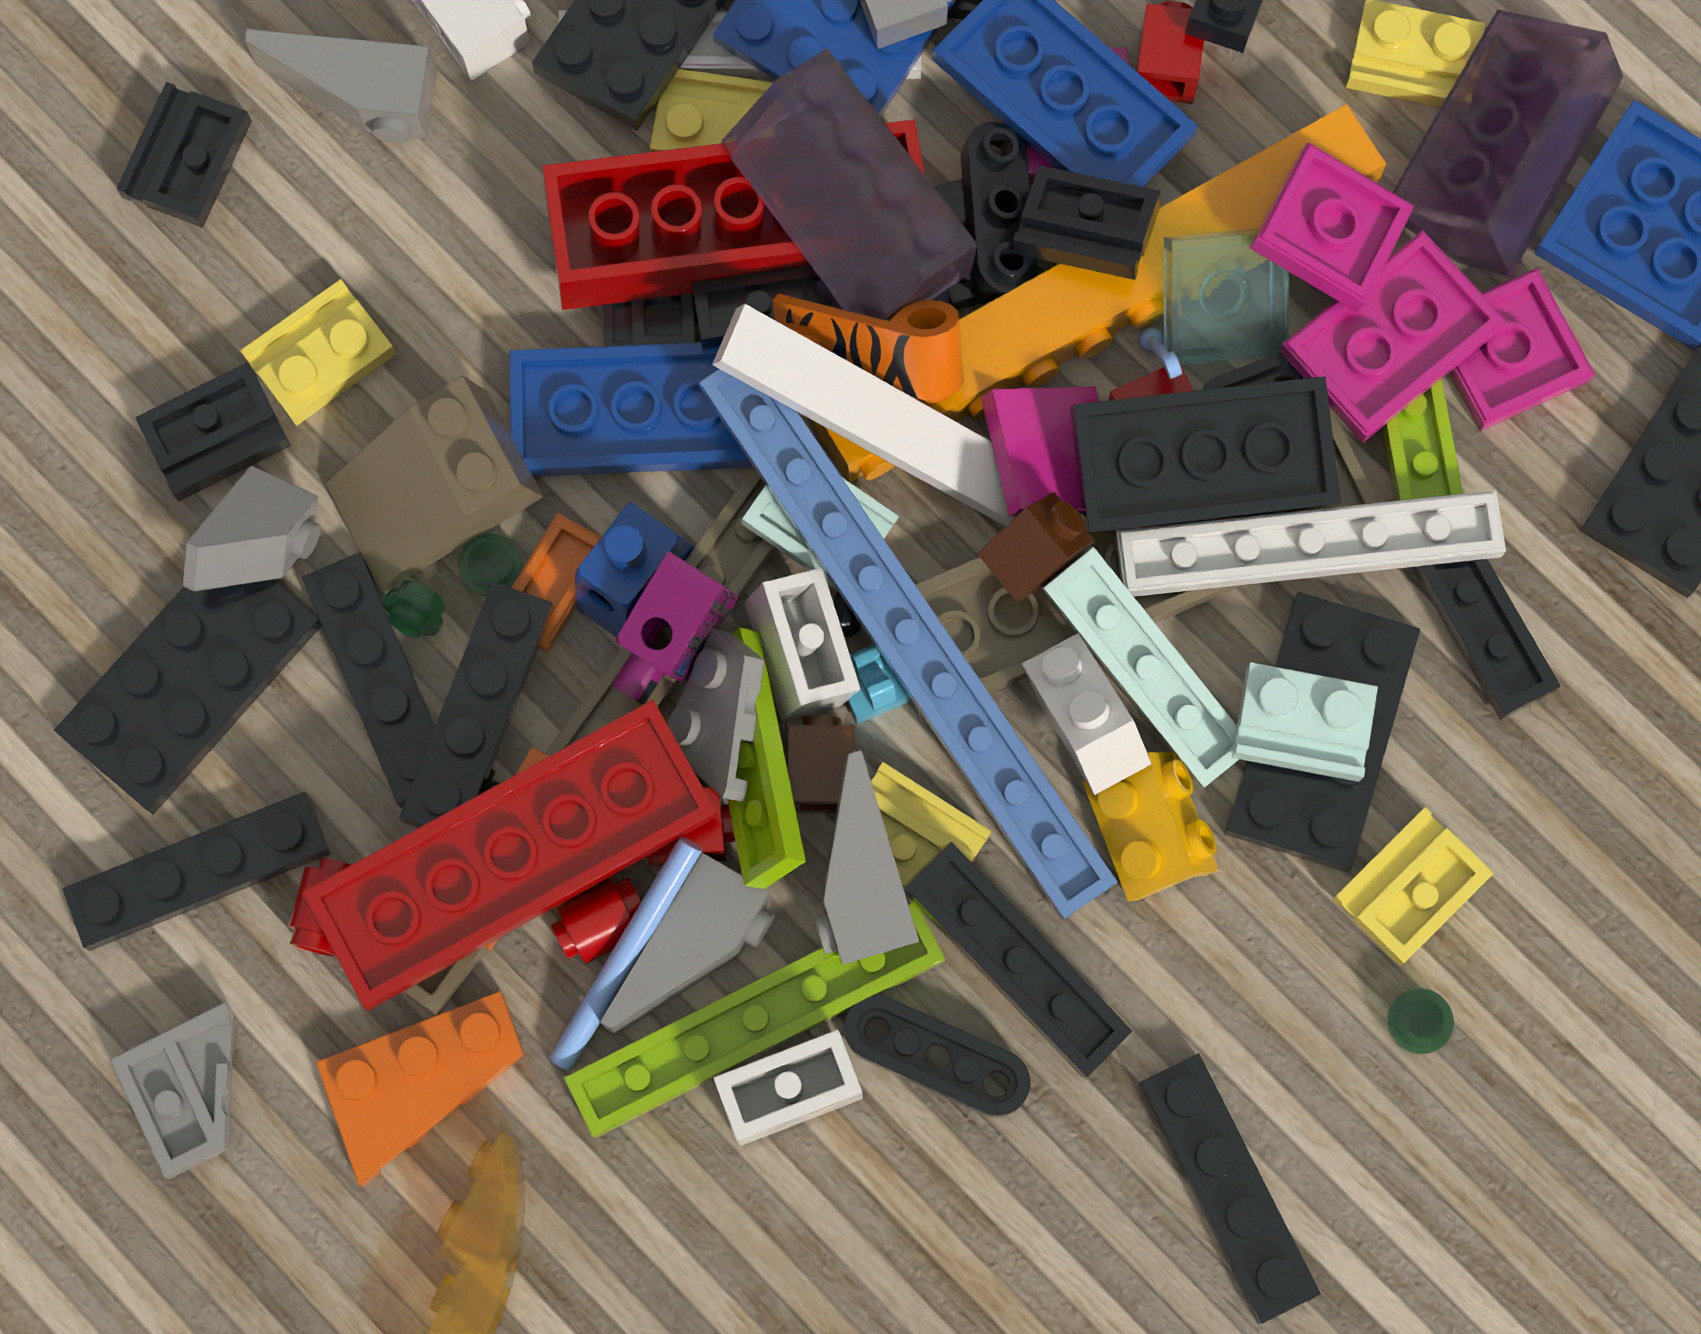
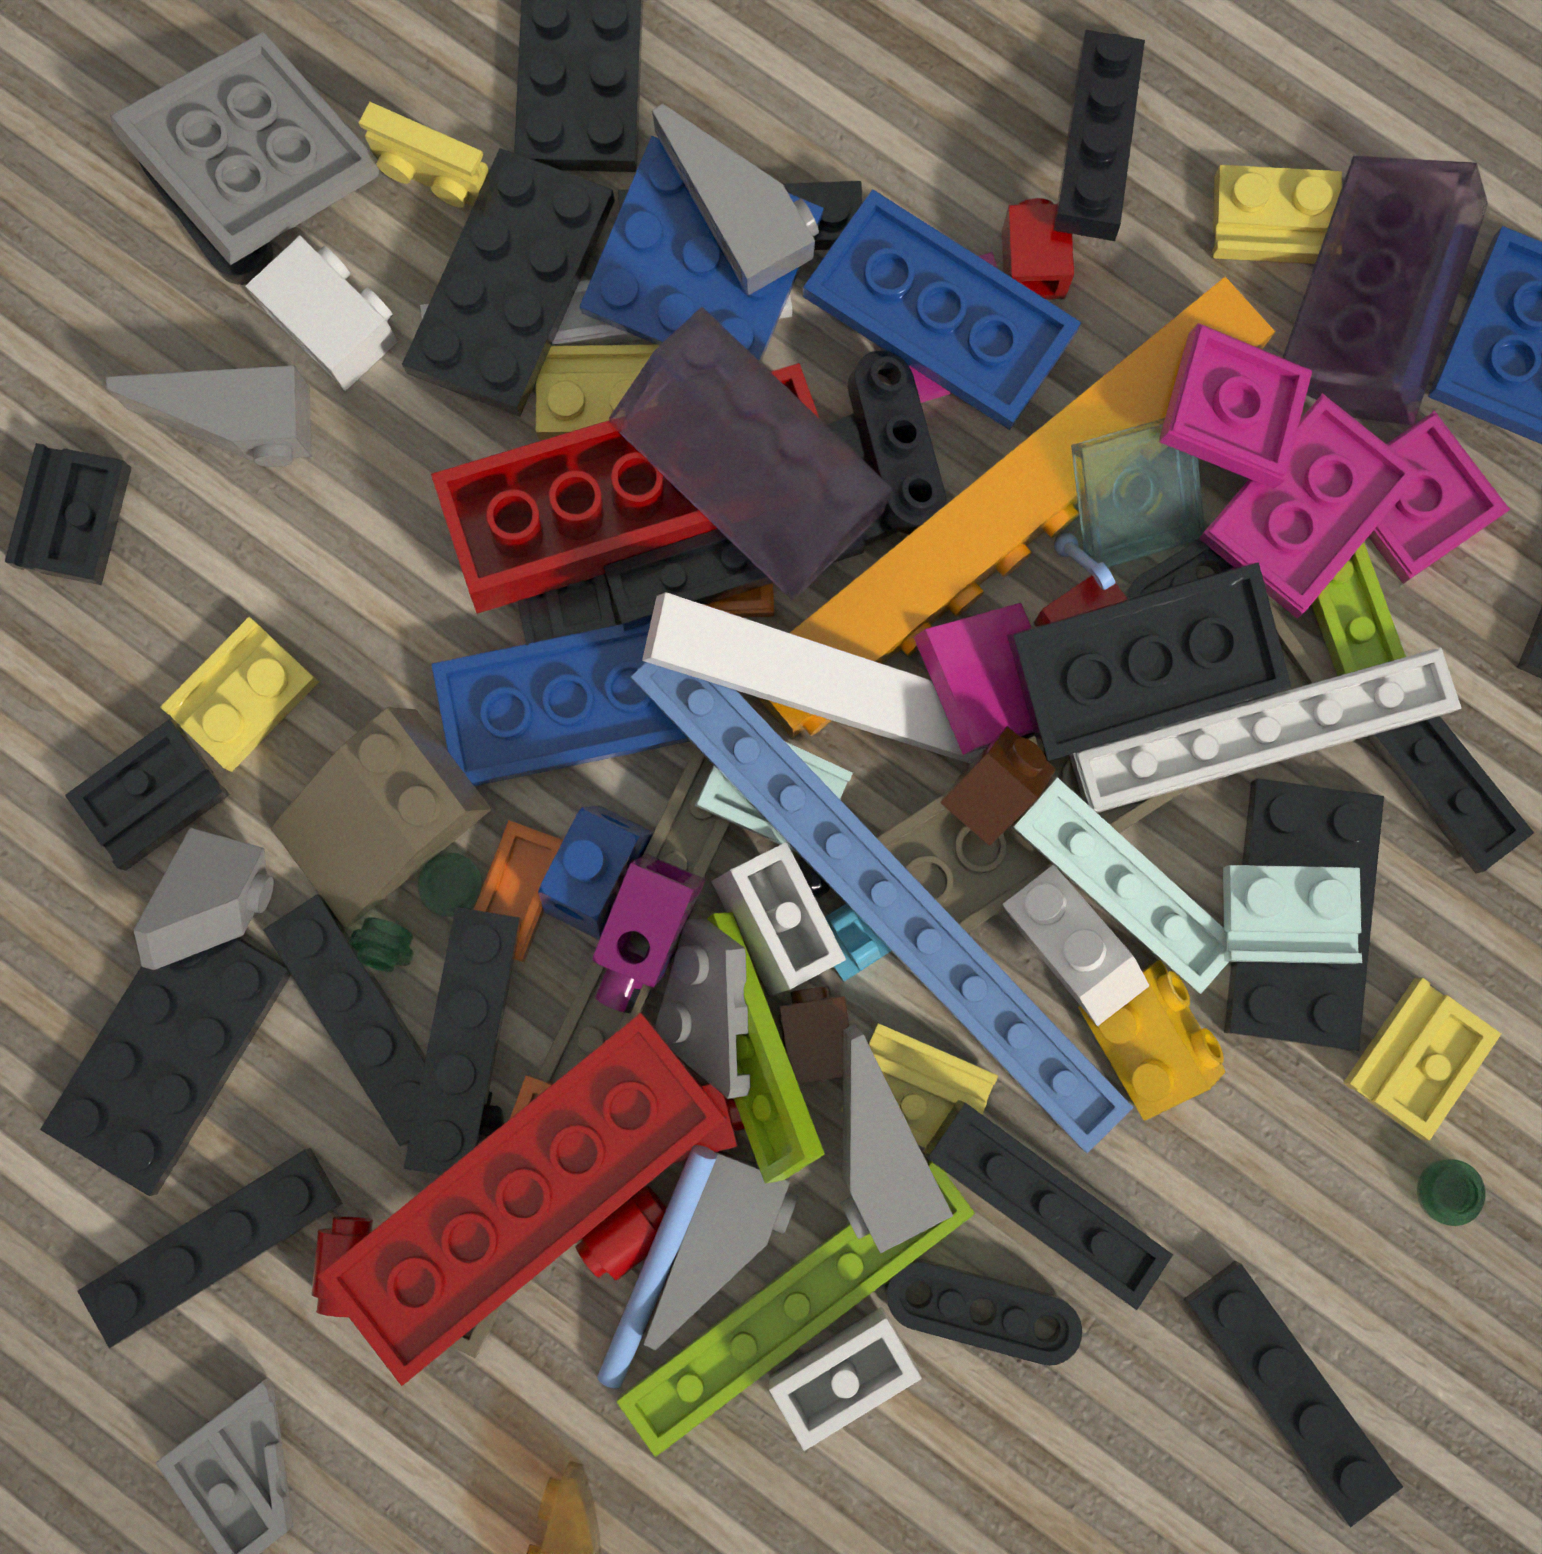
camera: 10 degrees left, 5 degrees up
(413, 1078) = (466, 1421): orange wing -> none
(911, 352) = (841, 609): orange door -> none
(1087, 222) = (990, 441): black plate -> none

